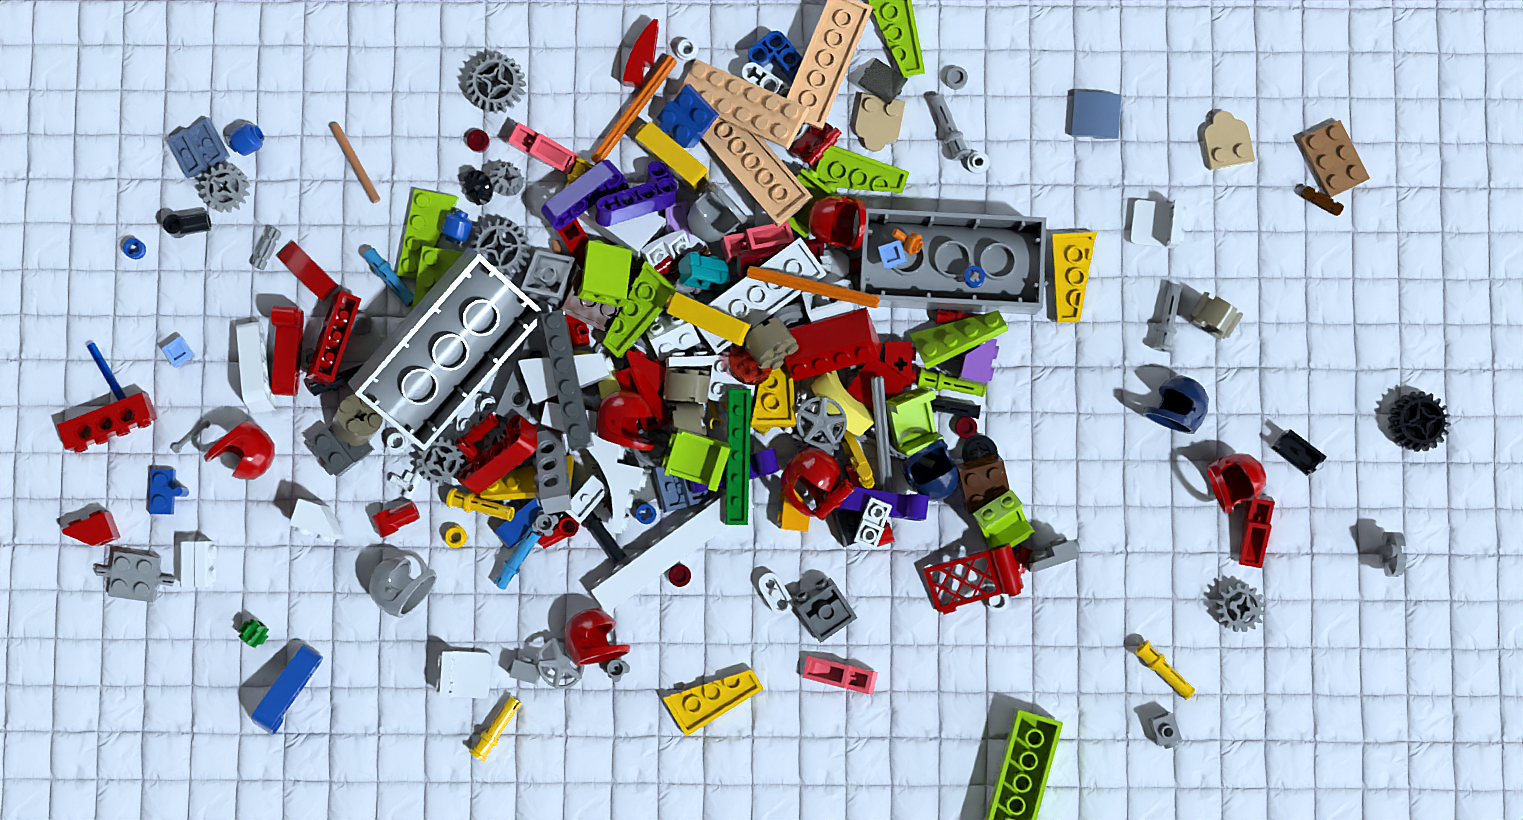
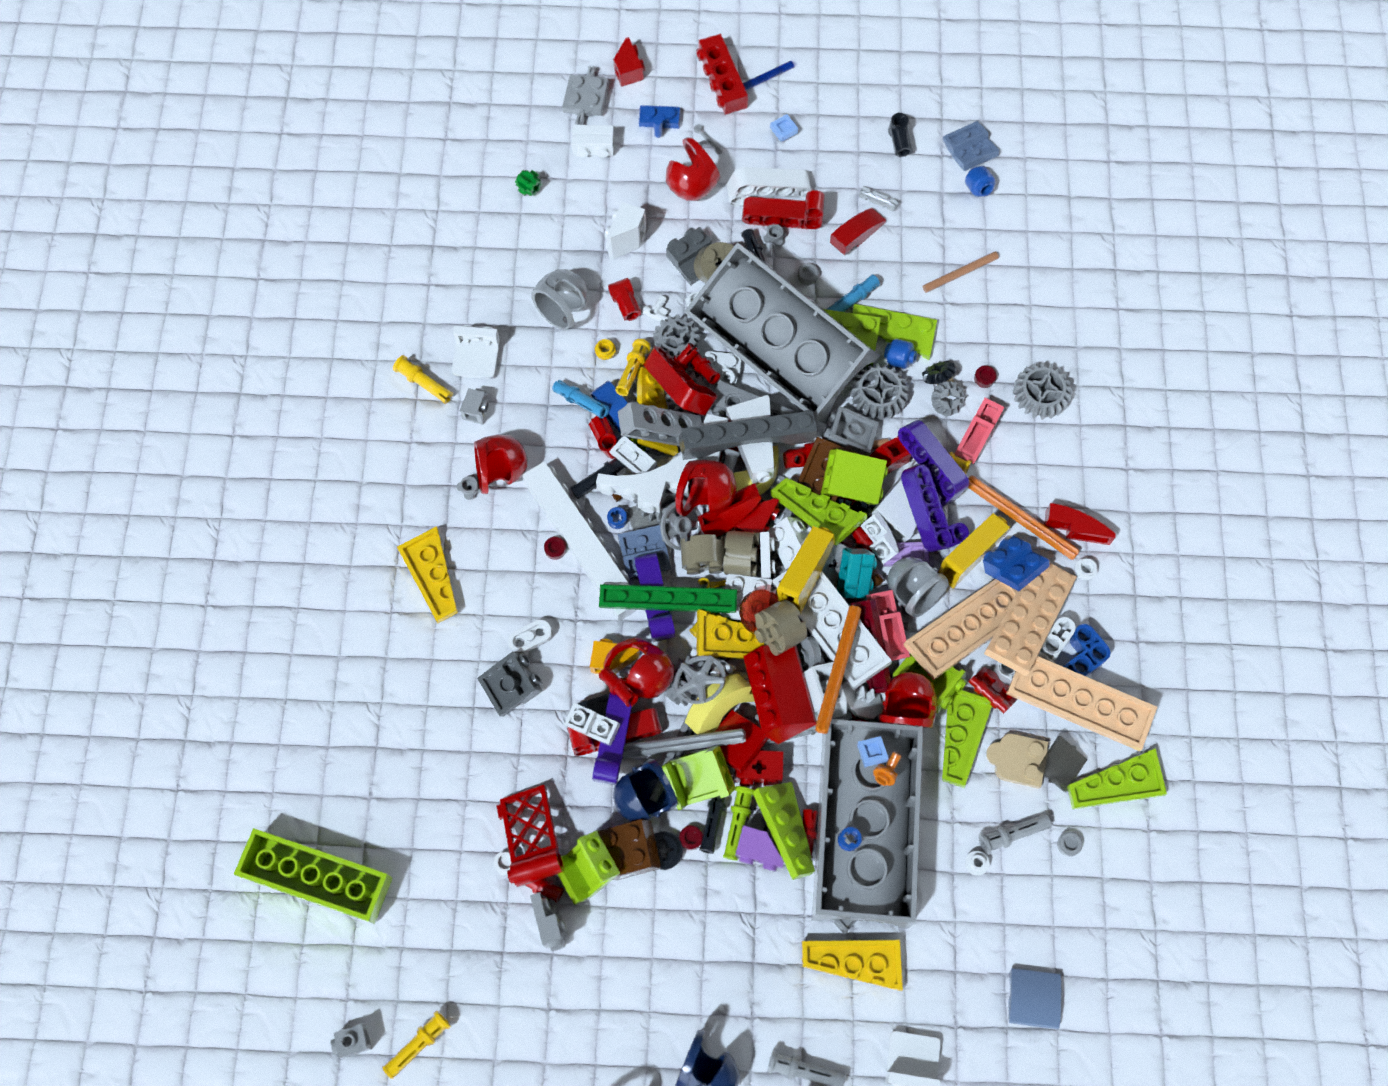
camera: 90 degrees right, 15 degrees down
(142, 249) = (877, 90): blue bush -> none
(231, 180) = (933, 164): light grey gear -> none
(285, 690) = (474, 205): blue beam -> none
(333, 337) = (794, 245): red brick -> none
(546, 529) = (607, 417): light grey plate -> none
(559, 663) = (476, 432): light grey wheel -> none
(696, 458) = (667, 554): lime panel -> none
(840, 675) = (442, 698): coral slope -> none
(858, 460) = (657, 717): yellow hinge -> none

